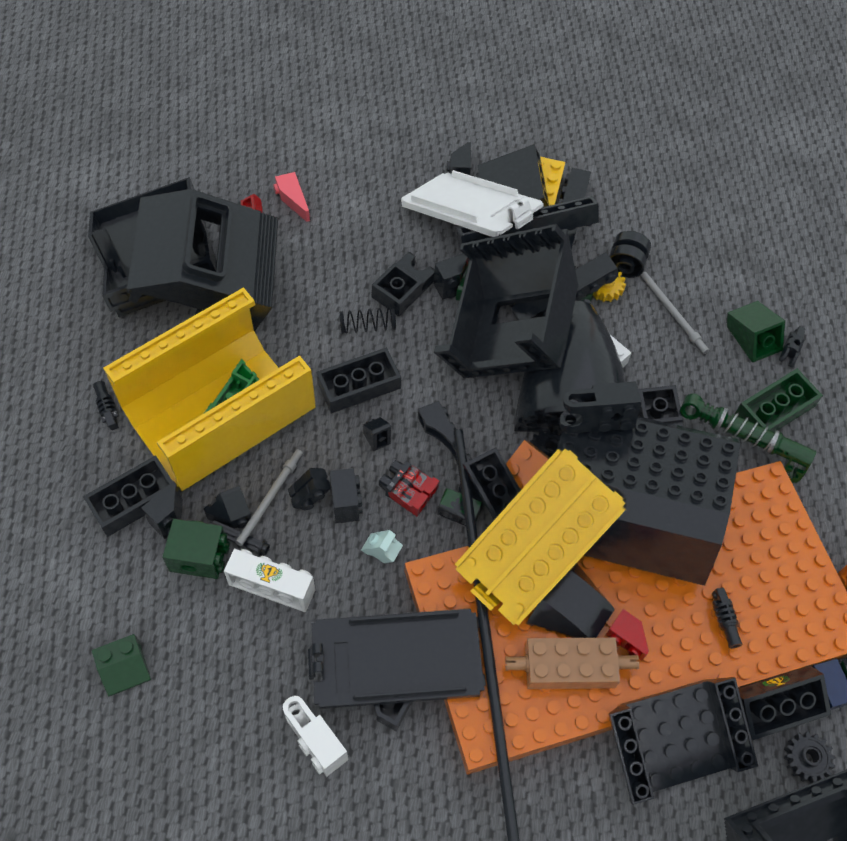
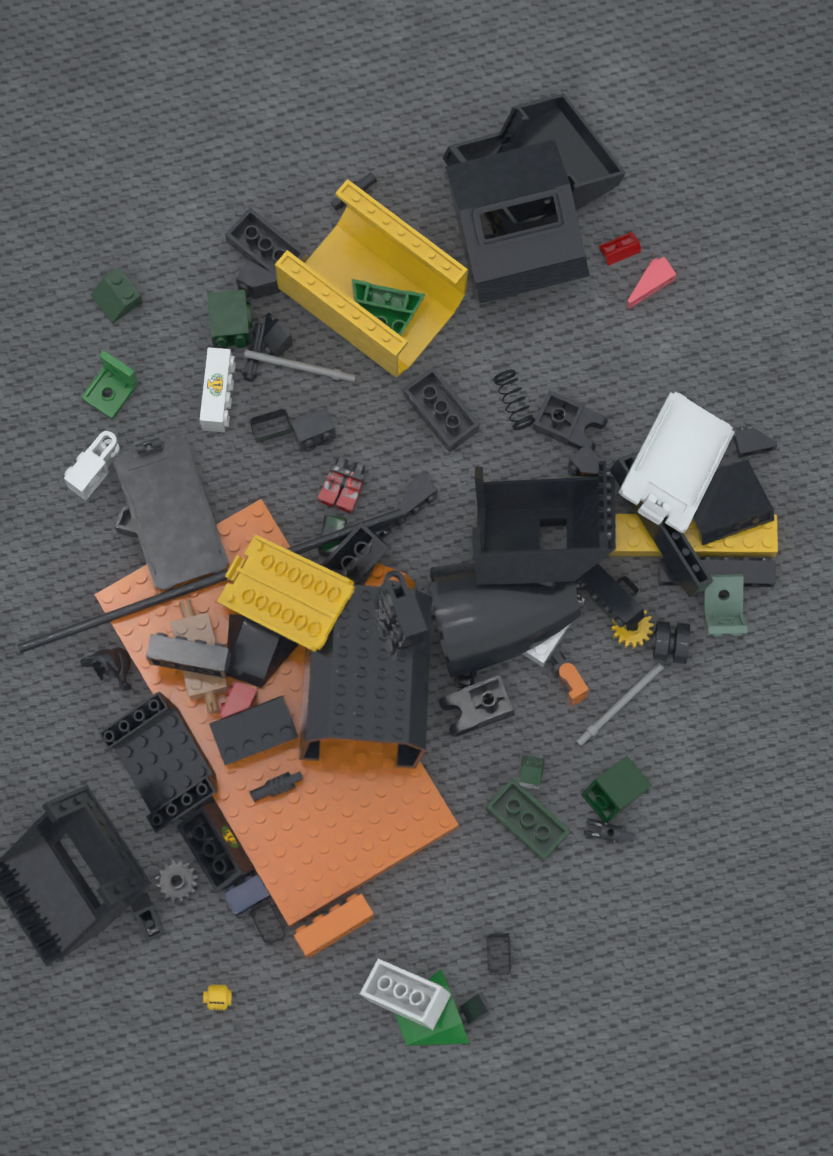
camera: 80 degrees right, 15 degrees up
(218, 684) = (115, 377): none -> green bracket
(309, 488) = (311, 397): black brick -> none
(324, 521) = (269, 416): none -> black piece
(377, 433) = (389, 441): black slope -> none
(382, 546) = (275, 477): light aqua brick -> none
(549, 771) = (111, 663): none -> black piece
(585, 661) = (188, 655): none -> brick
(613, 214) = (725, 614): none -> sand green bracket
(650, 337) = (569, 678): none -> orange hips
(668, 623) = (253, 730): none -> black slope
(733, 388) = (531, 771): none -> piece
(742, 428) = (472, 813): dark green piece -> none

